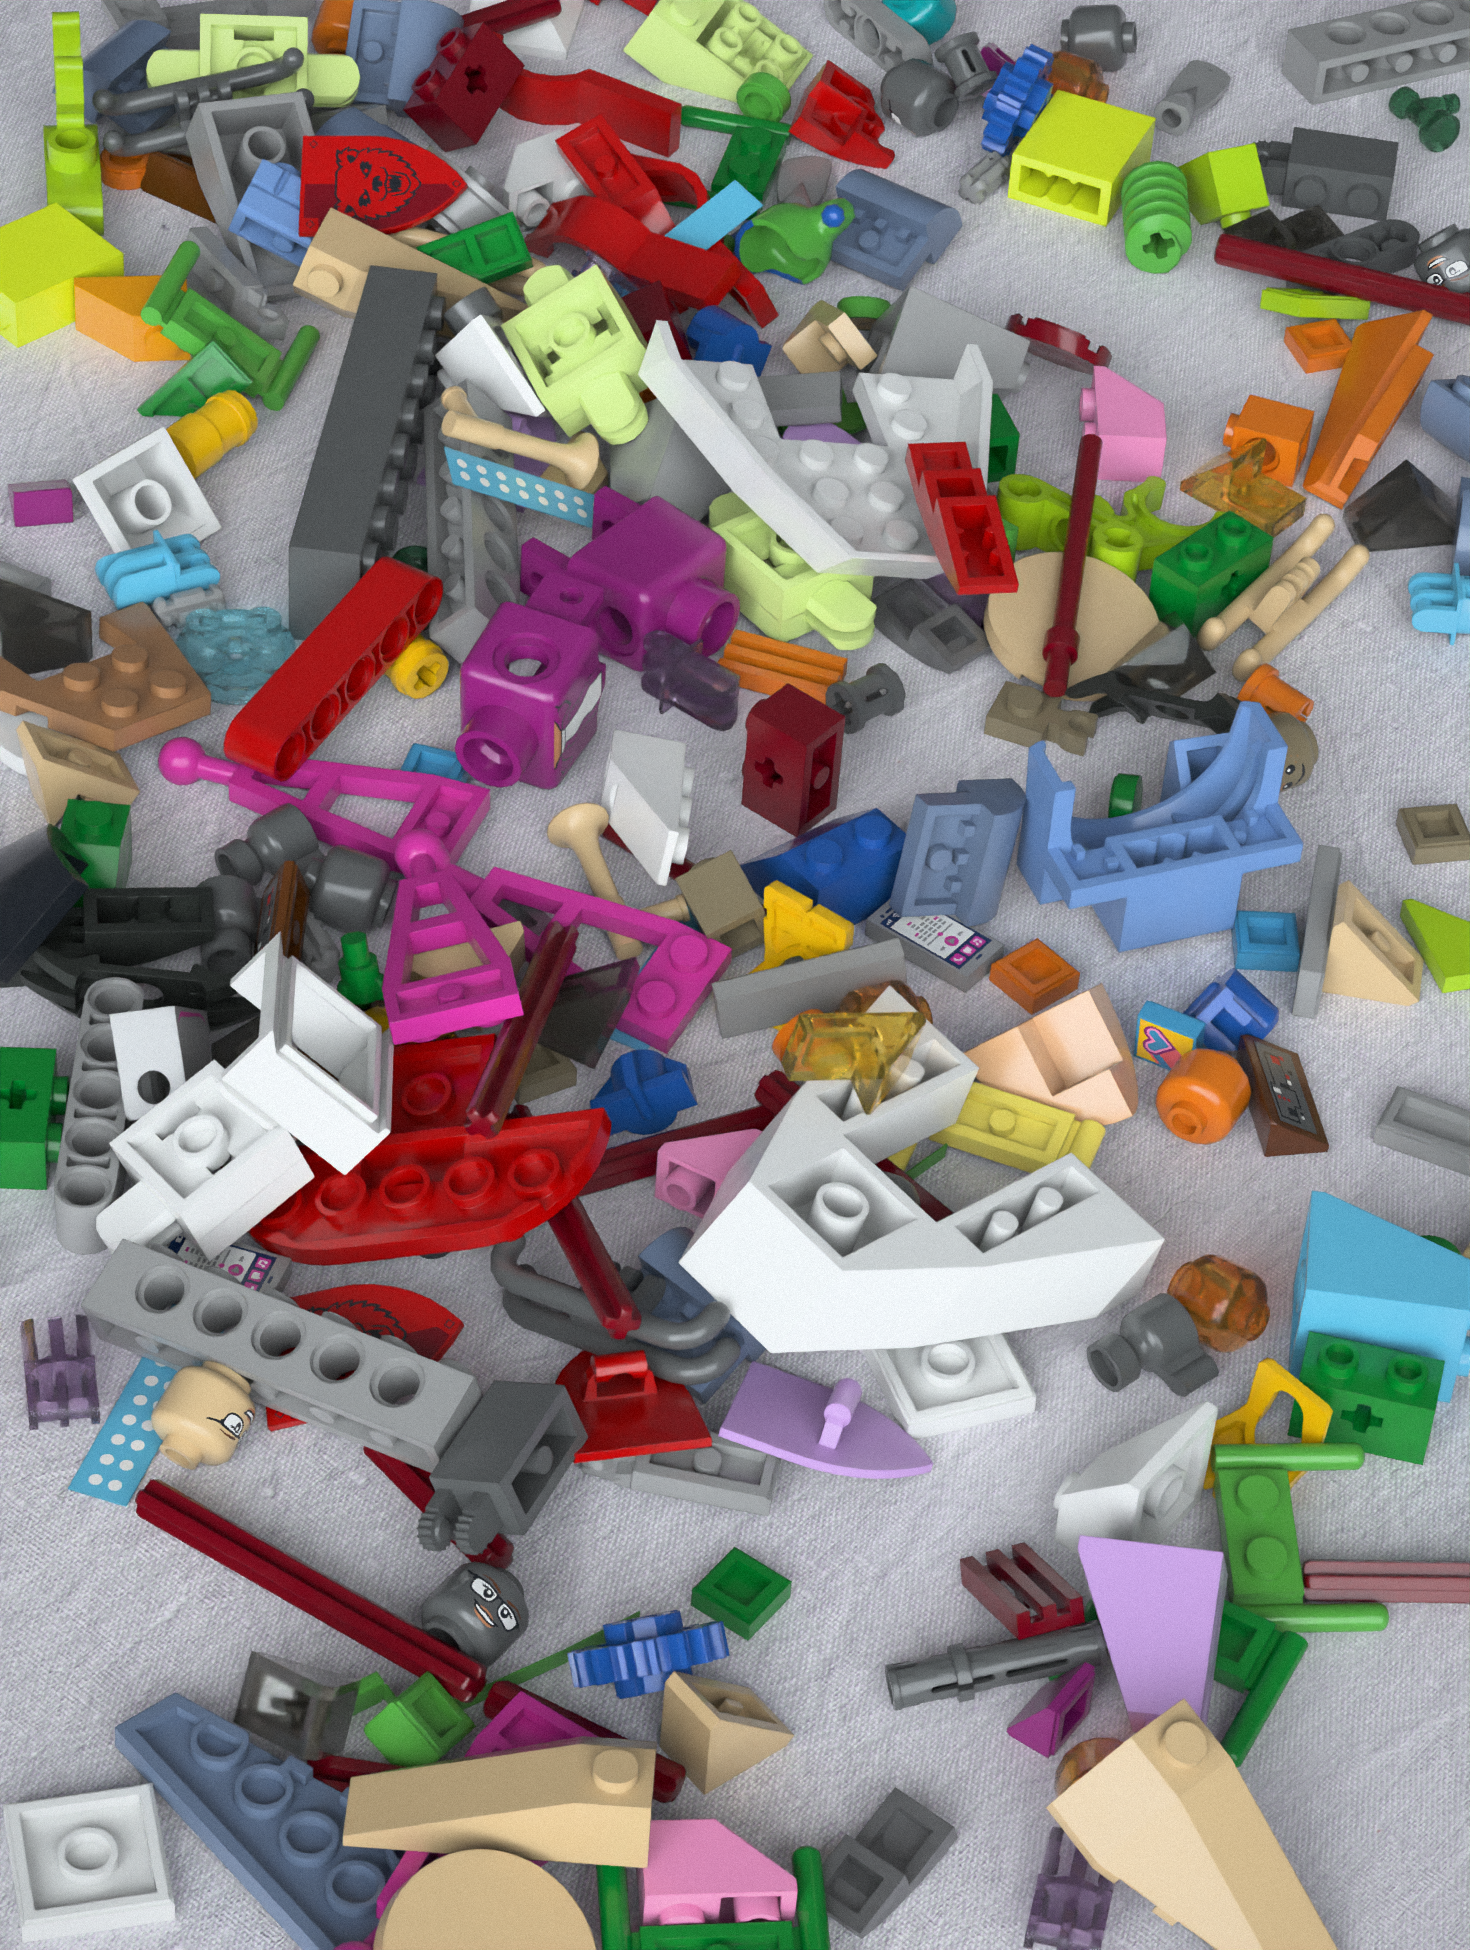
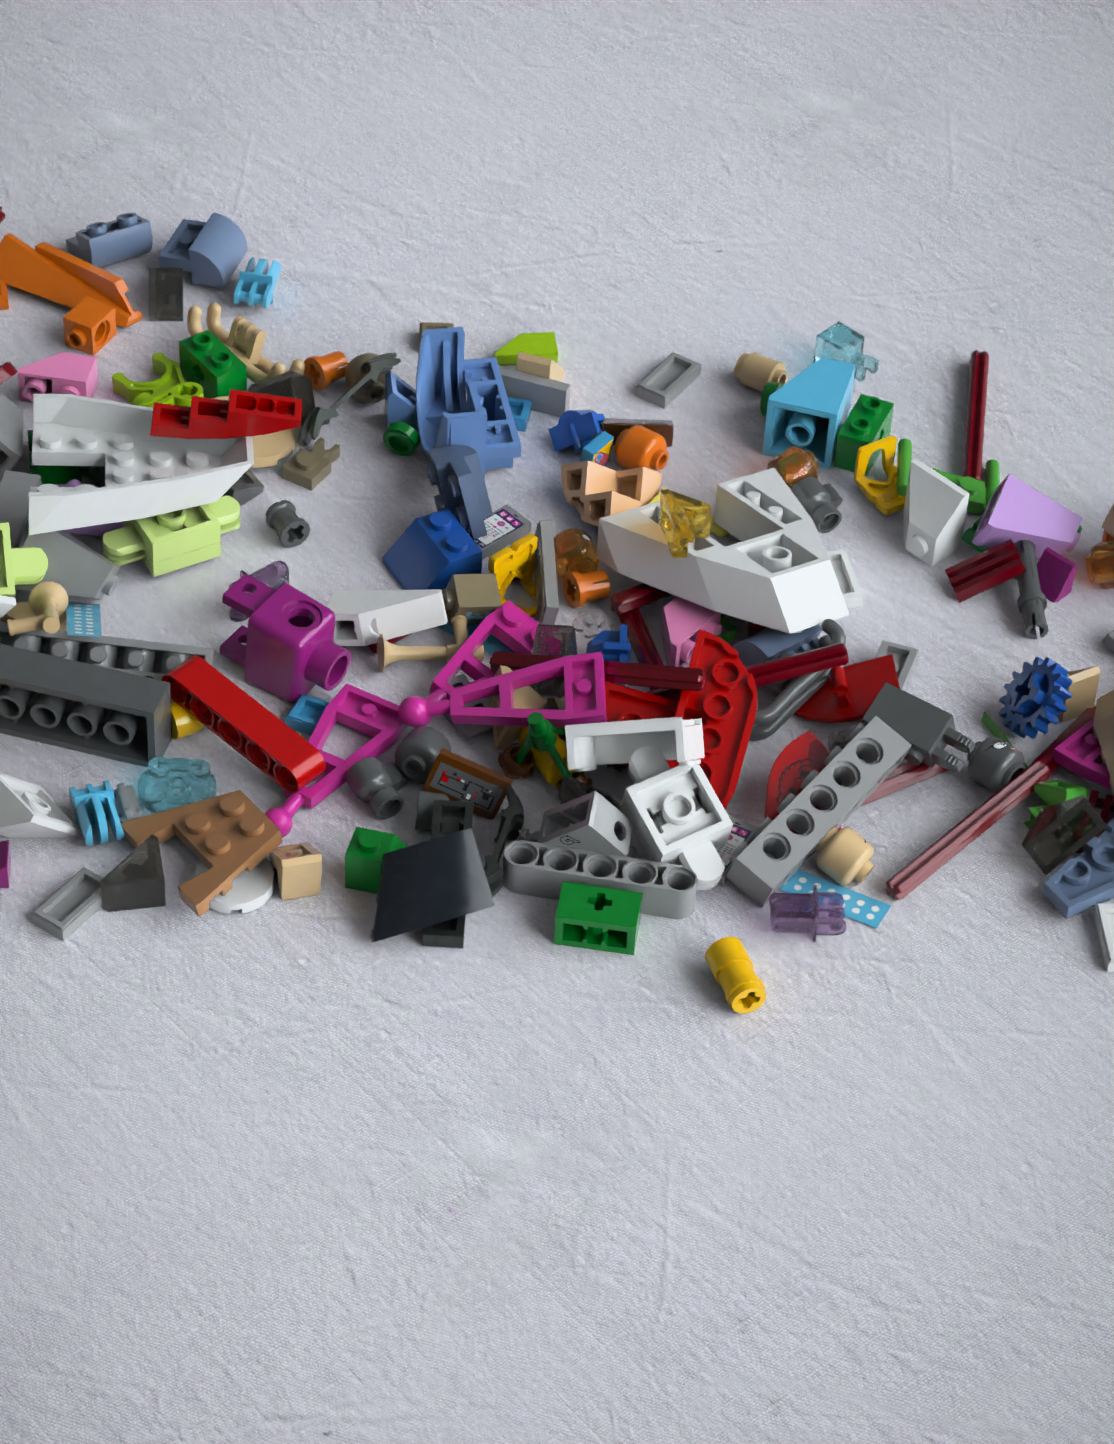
camera: 80 degrees left, 0 degrees up
(655, 574) = (174, 587): magenta piece -> none
(741, 1083) = (593, 622): none -> clear plant
(741, 1593) = (968, 676): green tile -> none
(771, 664) = (240, 551): orange tile -> none
(792, 760) = (360, 548): dark red brick -> none
(820, 1427) = (871, 625): lavender shield -> none
(1034, 976) = (527, 500): orange tile -> none
(1062, 639) = (168, 397): dark red bar -> none
(1236, 484) = (123, 347): clear yellow slope -> none

